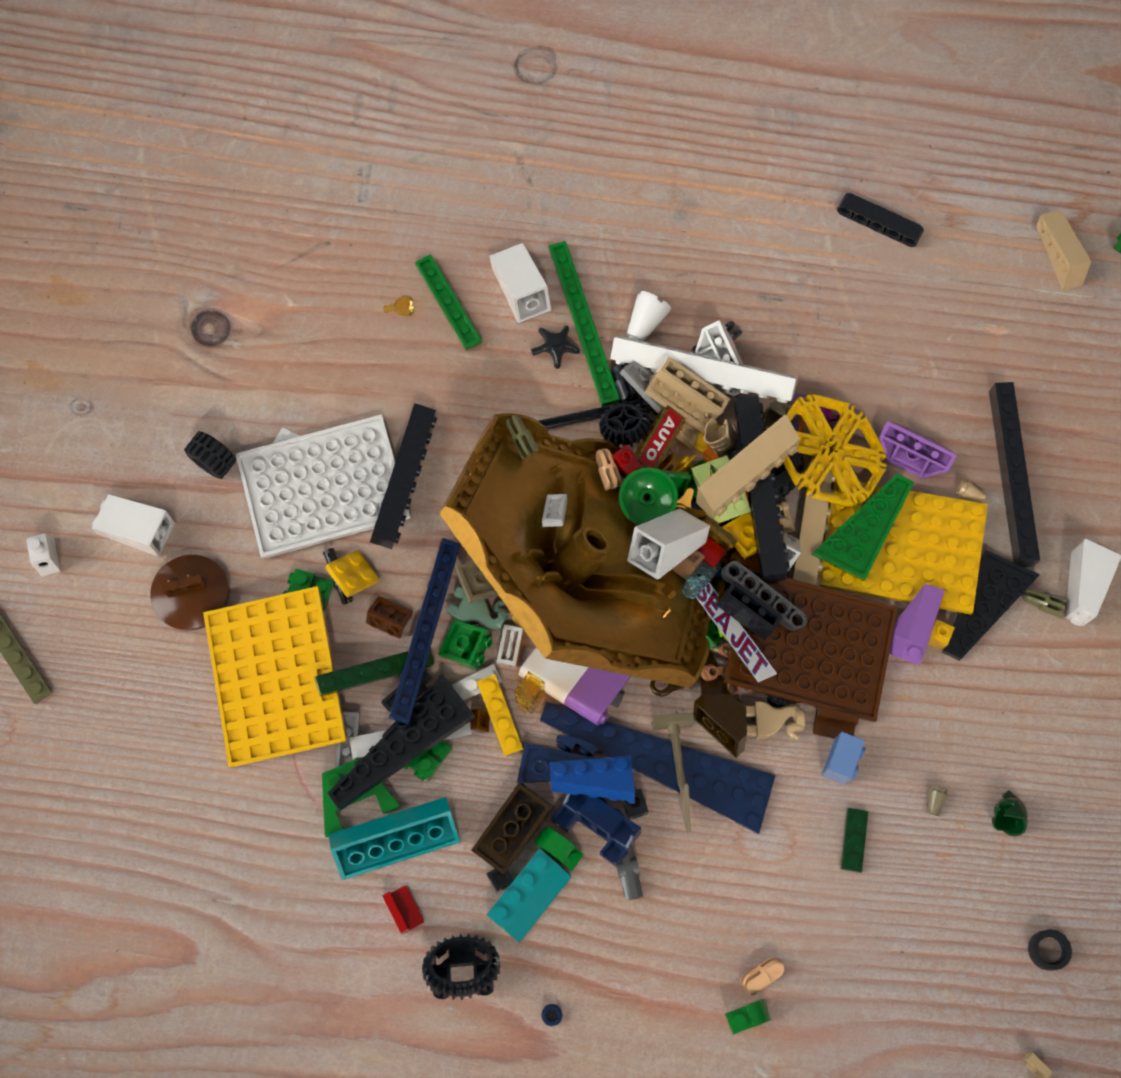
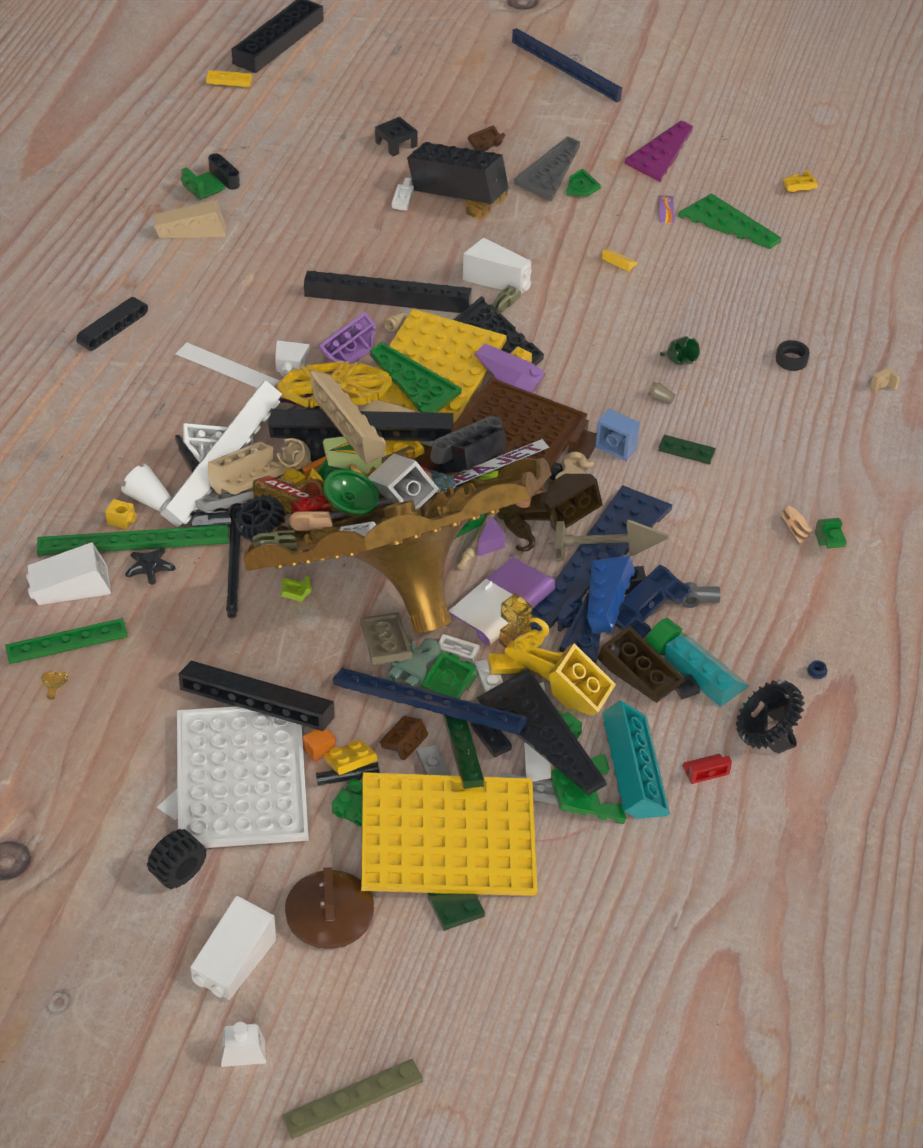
camera: 80 degrees left, 25 degrees down
(204, 700) = (455, 909): none -> dark green wing
(362, 543) = (318, 743): none -> orange brick
(364, 649) = (432, 760): none -> light grey plate
(476, 760) = (572, 675): none -> yellow slope
(612, 295) = (120, 514): none -> yellow brick
(852, 344) = (224, 366): none -> white sticker
(877, 399) = (291, 356): none -> white torso

